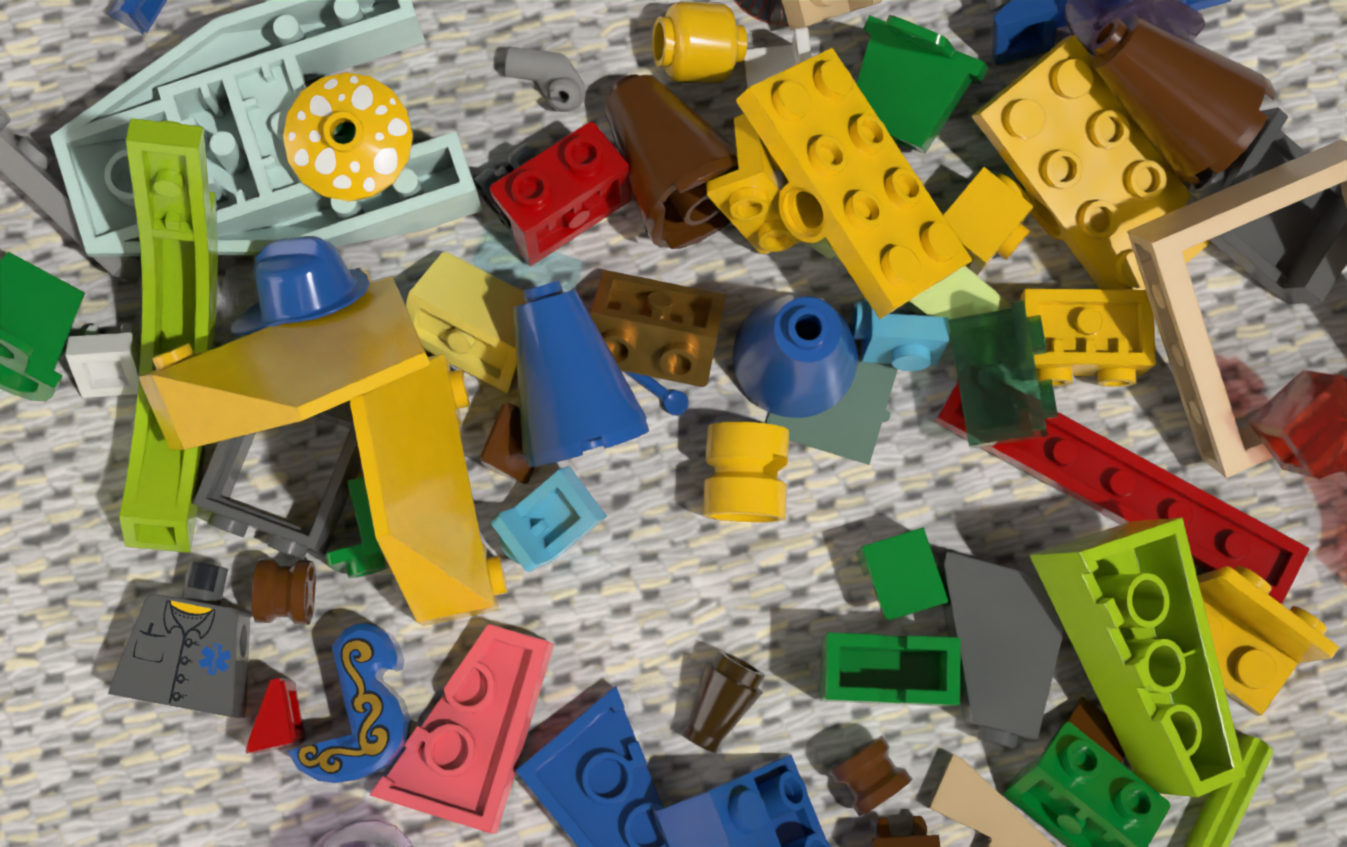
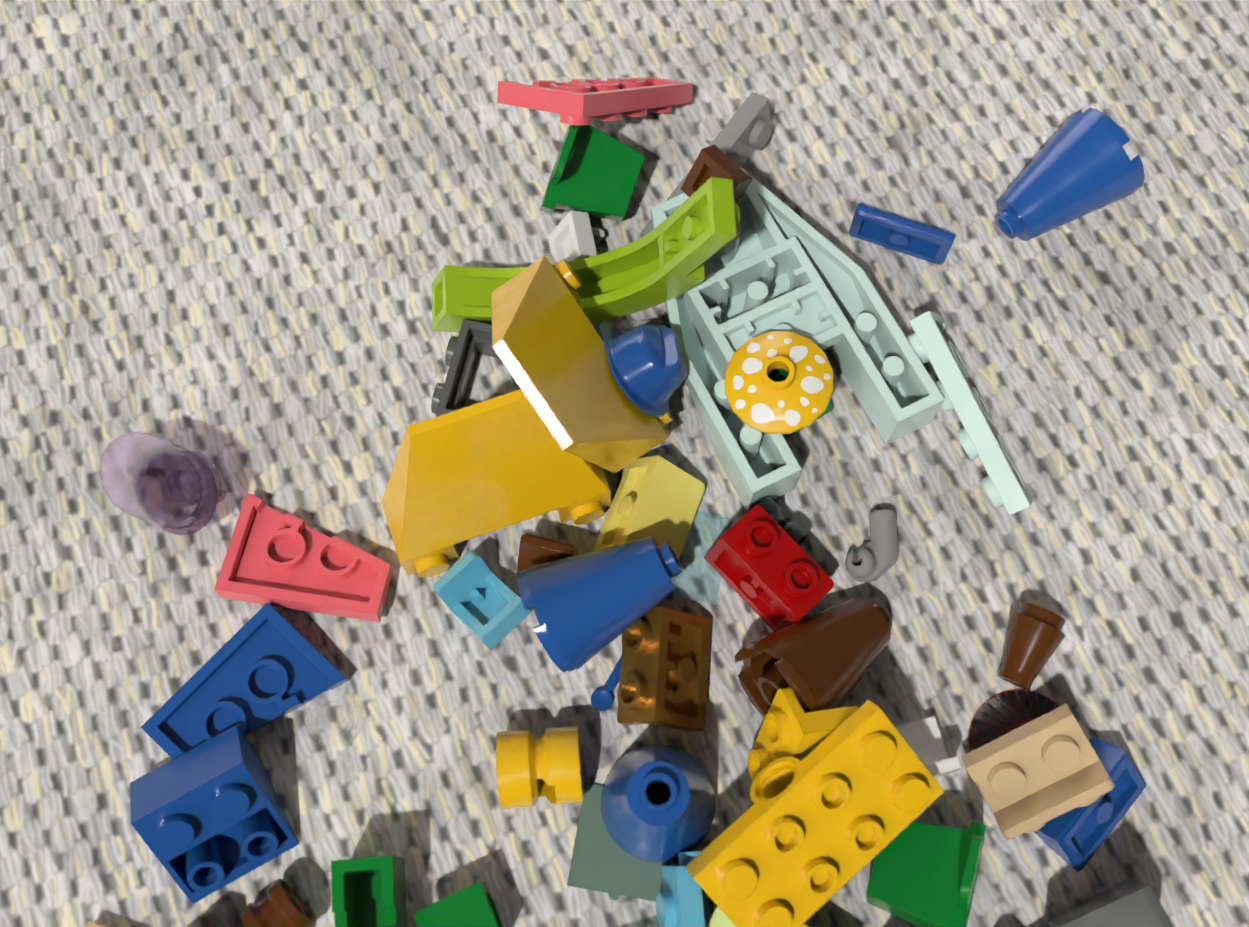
camera: 85 degrees right, 10 degrees down
(76, 165) = (715, 163): none -> reddish brown tile
(188, 649) = (352, 340): dark grey torso -> none
(278, 719) = (303, 413): red slope -> none
(283, 591) = (404, 400): reddish brown wheel -> none
(373, 707) = (318, 482): blue animal -> none
(698, 42) = (932, 674): yellow head -> none
(722, 699) = (342, 774): dark brown cone -> none

